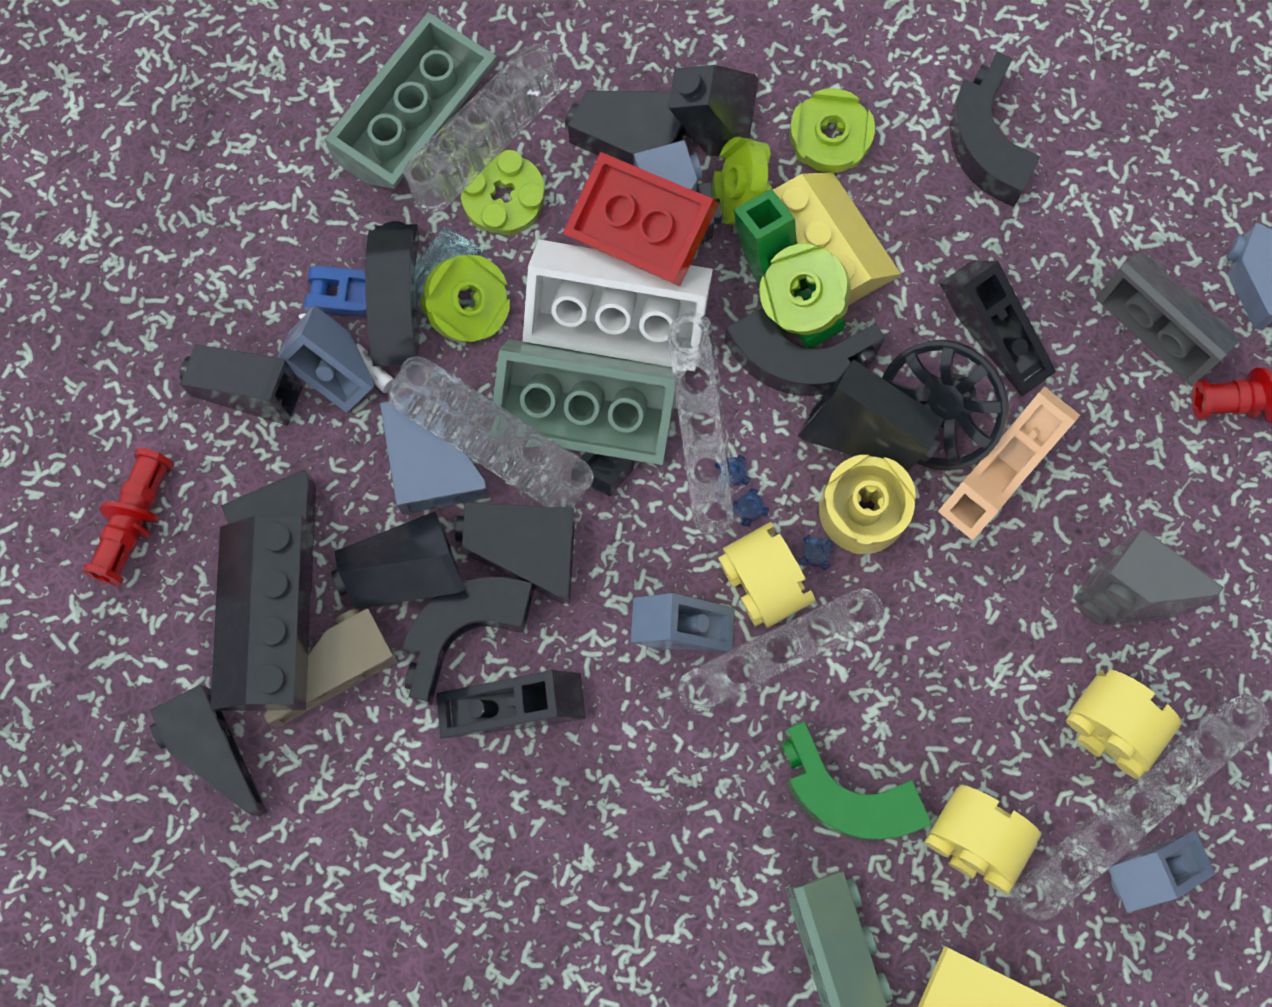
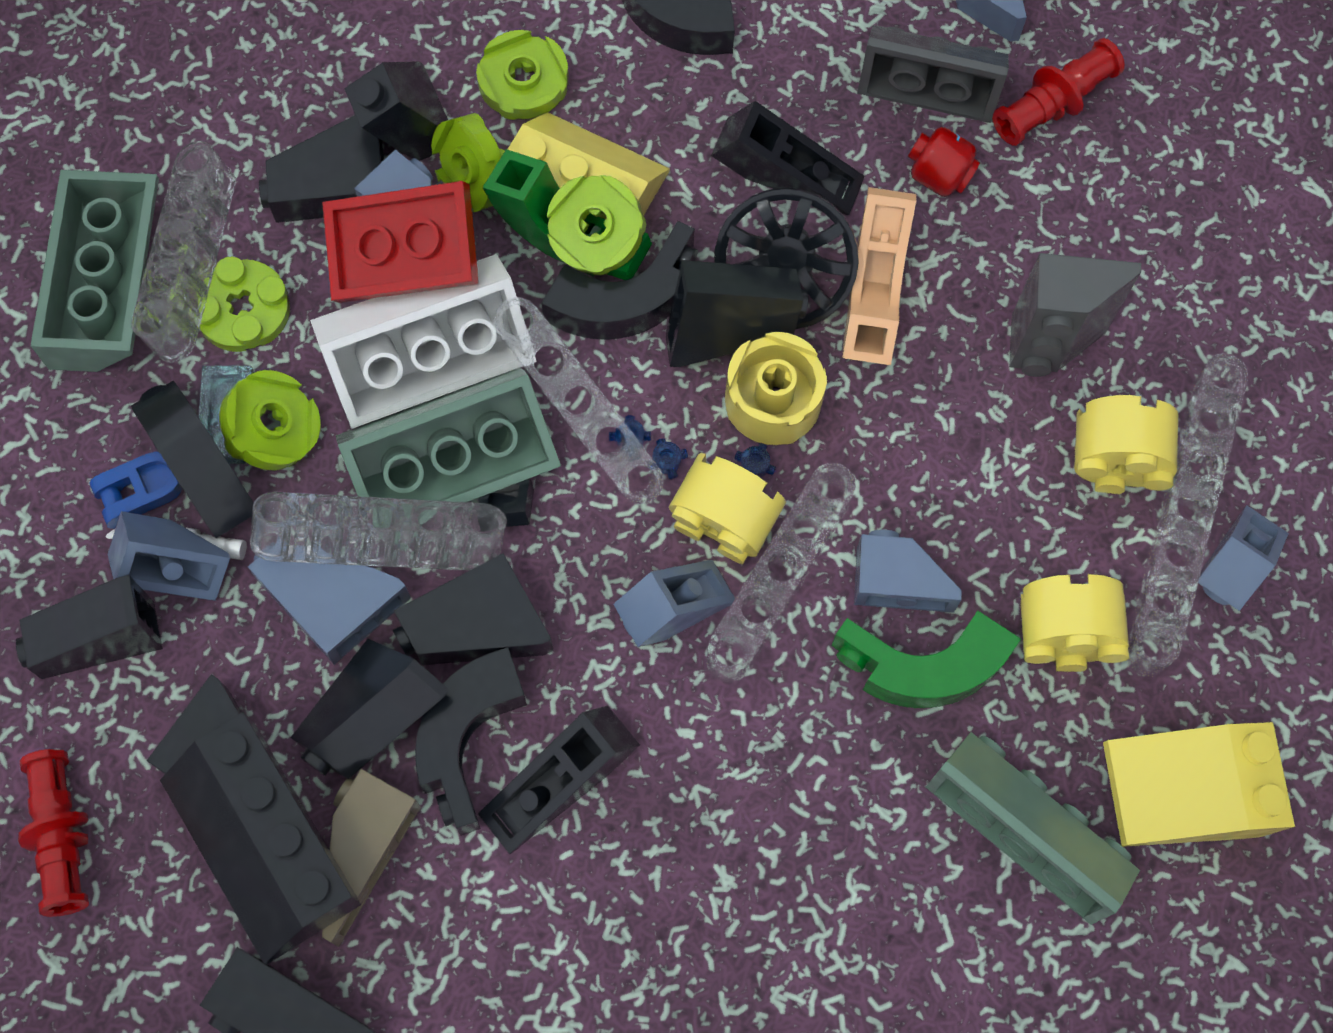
camera: 35 degrees left, 5 degrees down
(871, 712) = (901, 575): none -> sand blue slope
(1128, 398) = (943, 161): none -> red head

